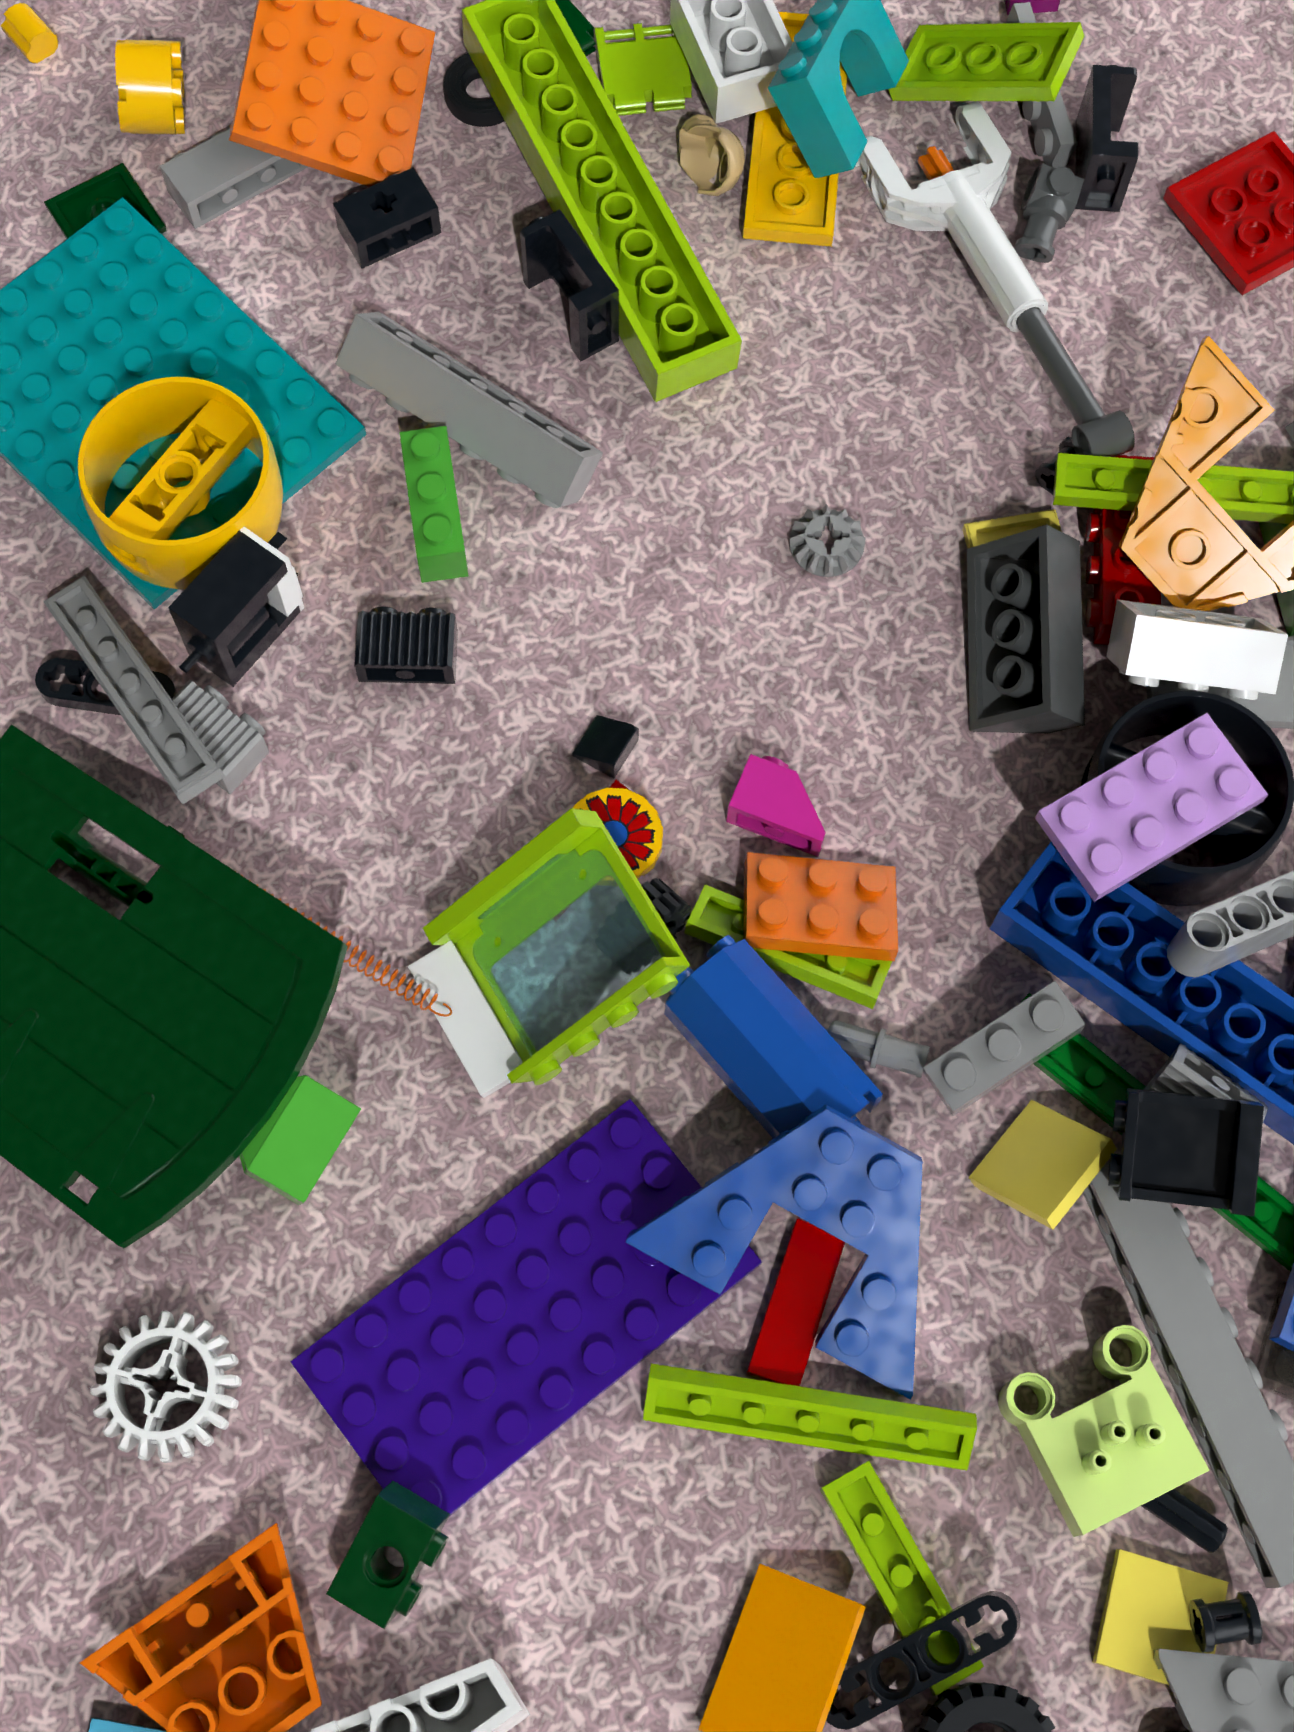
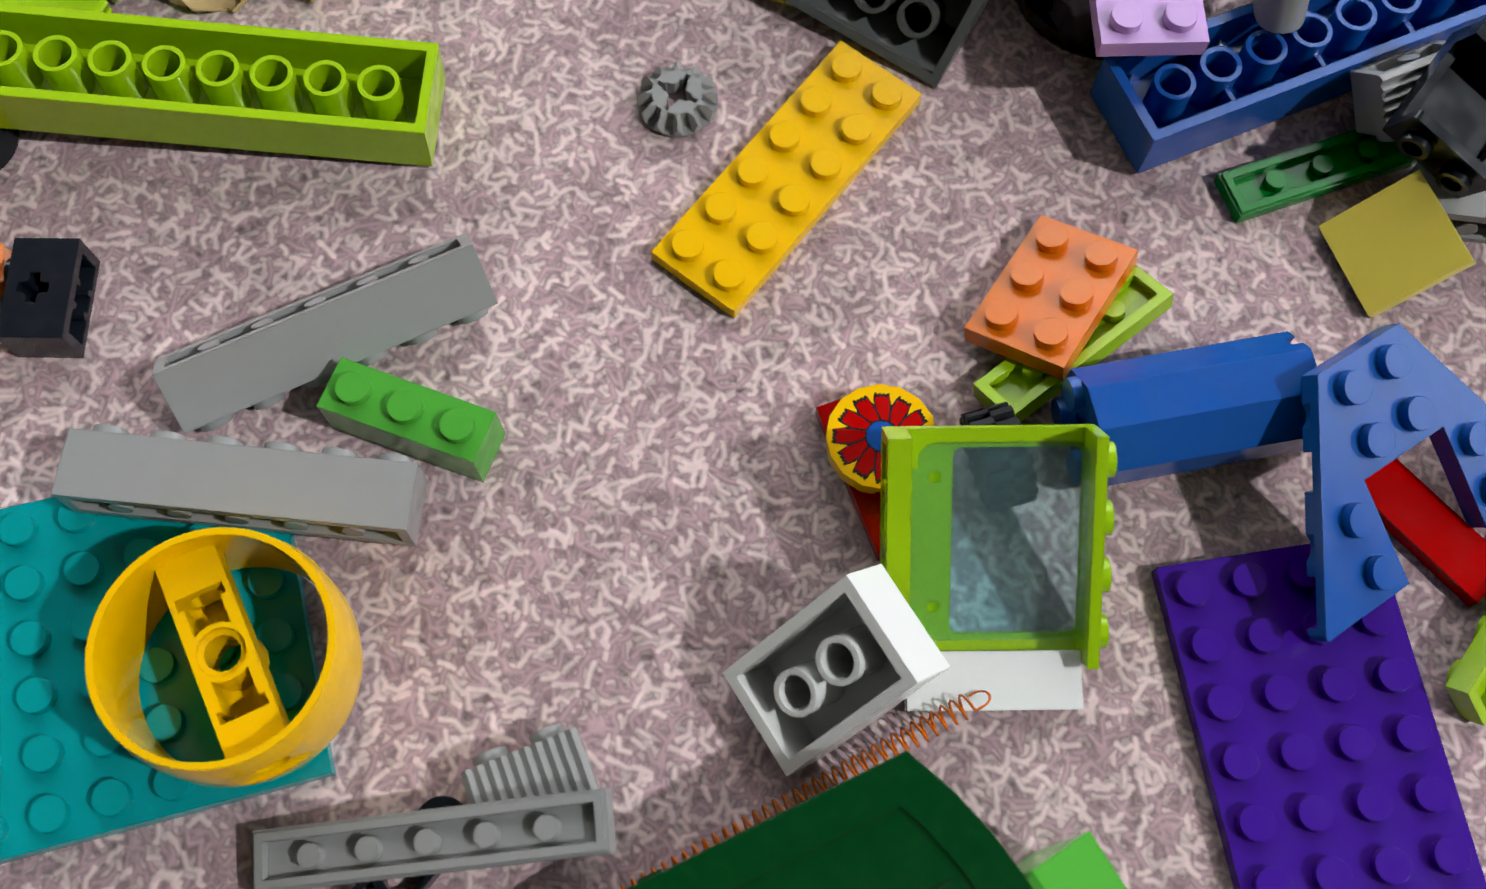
camera: 60 degrees left, 0 degrees up
(237, 606) = (409, 674): black piece -> none
(315, 425) = (241, 485): none -> light grey brick
(396, 882) = (835, 668): none -> white brick
(406, 646) = (553, 529): black brick -> none
(558, 253) = (258, 151): black panel -> none
(607, 744) = (772, 397): black slope -> none
(776, 805) = (927, 278): dark pink slope -> none
(811, 659) = (786, 179): none -> yellow plate
(880, 1048) = (1214, 320): light grey axle -> none
(1004, 1048) = (1277, 214): light grey brick -> none

